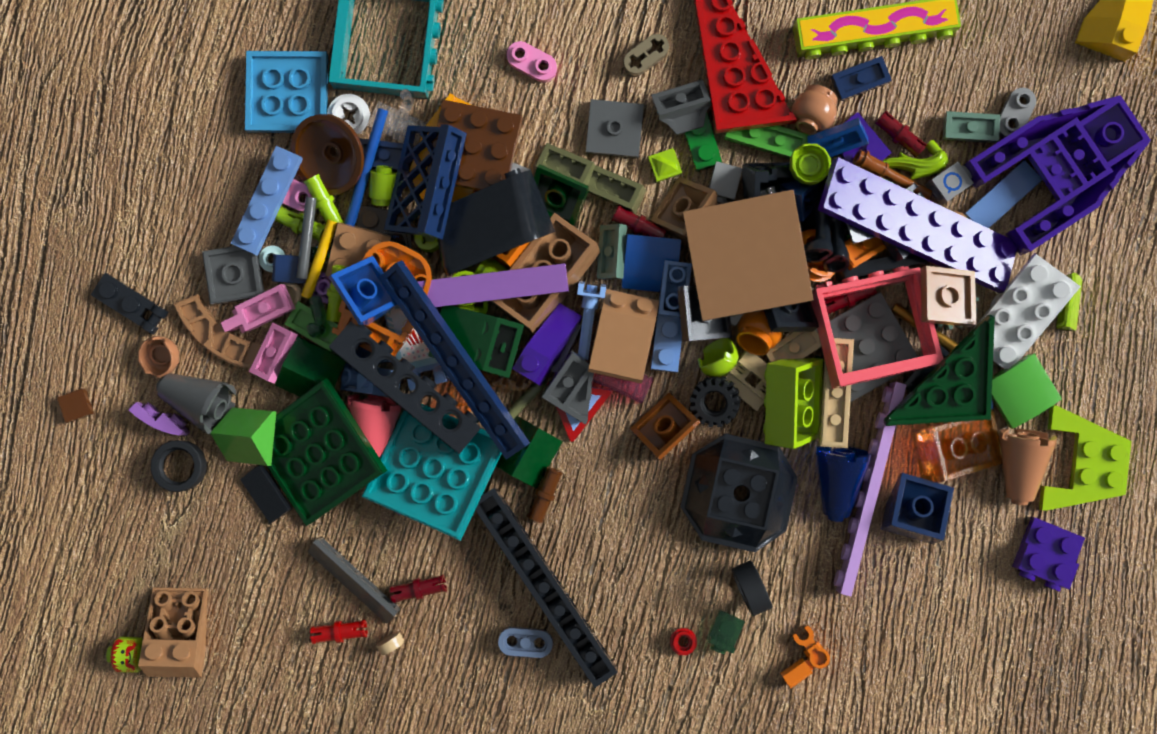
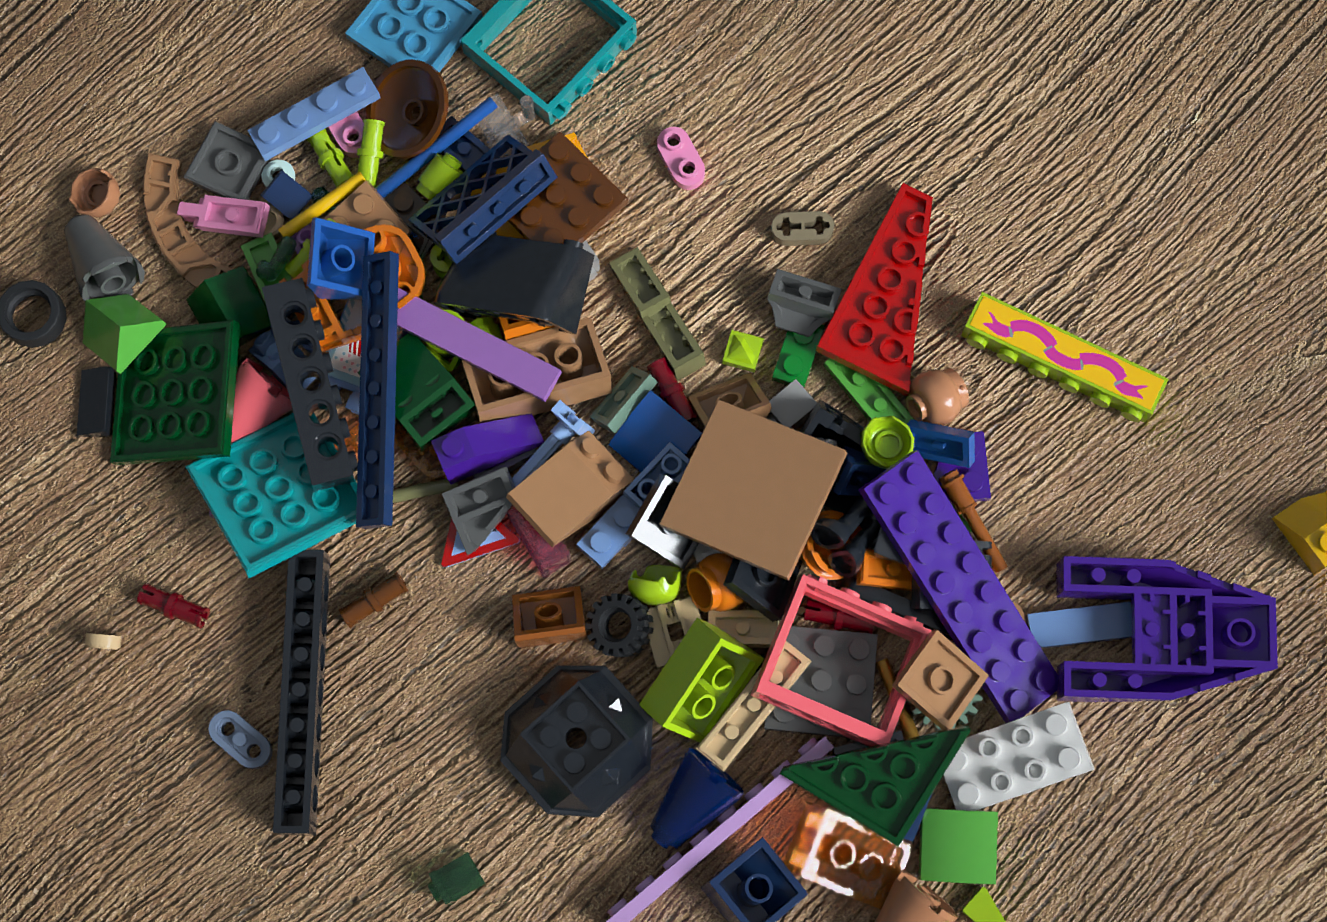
camera: 35 degrees right, 10 degrees down
(129, 302) = (107, 123): black plate -> none
(166, 422) = (48, 257): medium lavender slope -> none
(273, 353) = (206, 264): bright pink plate -> none
(306, 238) = (325, 175): dark grey bar -> none
(338, 631) = (60, 592): red pin -> none
(352, 103) = (470, 78): white gear -> none
(353, 580) = (116, 551): dark grey slope -> none
(531, 461) = (389, 549): dark green slope -> none
(561, 193) = (611, 305): dark green slope -> none
(614, 128) = (717, 279): dark grey plate -> none
(689, 647) = (394, 854): red plate -> none
(751, 588) = (515, 848): black tyre -> none
(861, 78) = (1011, 400): dark blue plate -> none
(900, 133) = (1014, 484): dark red pin -> none
(921, 167) = (1012, 534): lime piece -> none
(950, 183) = (1031, 571): light grey brick -> none
(971, 127) = (1095, 528): sand green plate -> none
(1015, 111) = (1155, 542): light grey plate -> none
(1068, 316) = (1077, 791): lime slope -> none

